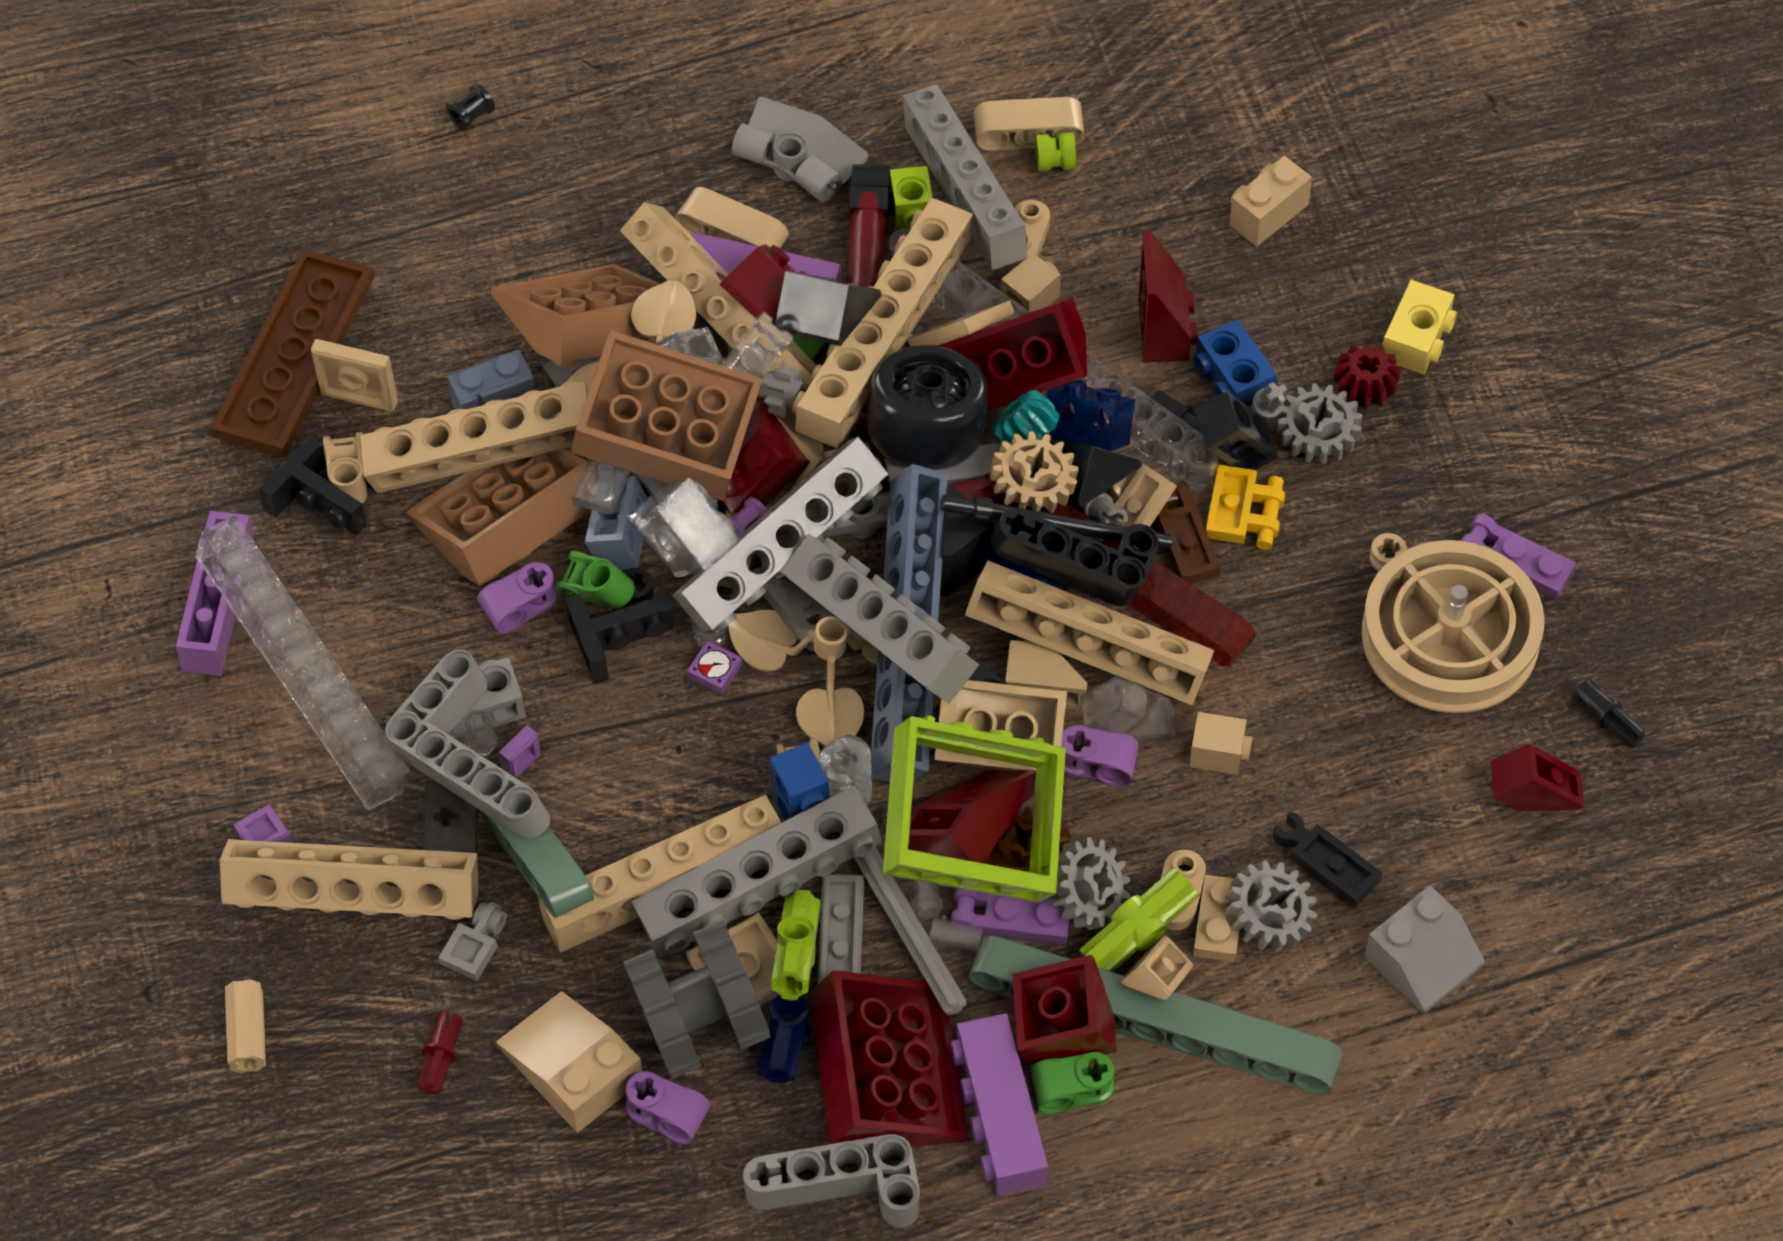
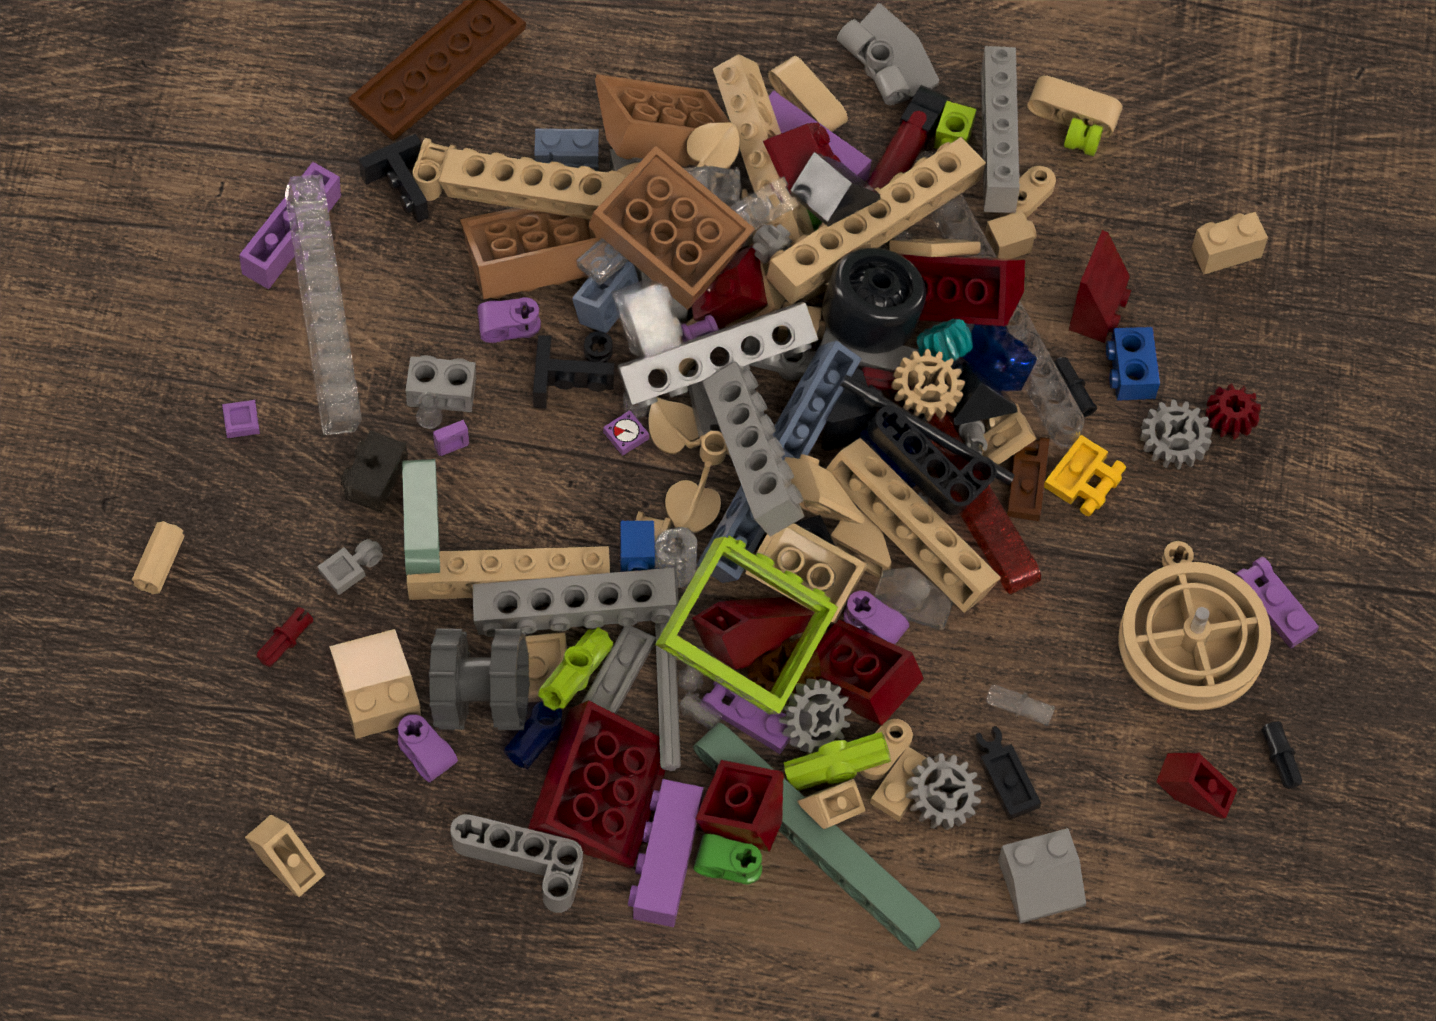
camera: 20 degrees right, 5 degrees up
(354, 375) = (469, 100): tan tile -> none
(368, 867) = (282, 480): tan brick -> none
(422, 739) = (380, 394): light grey beam -> none
(596, 581) = (569, 331): bright green piece -> none
(988, 638) = (822, 491): none -> tan slope
(1126, 808) = (868, 670): none -> dark red slope
(1219, 743) = (970, 650): tan brick -> none
(1235, 432) = (1103, 416): black brick -> none
(1269, 401) = (1141, 403): light grey axle -> none
(1303, 778) = (1020, 704): none -> clear axle
(1420, 308) = (1300, 375): light yellow brick -> none

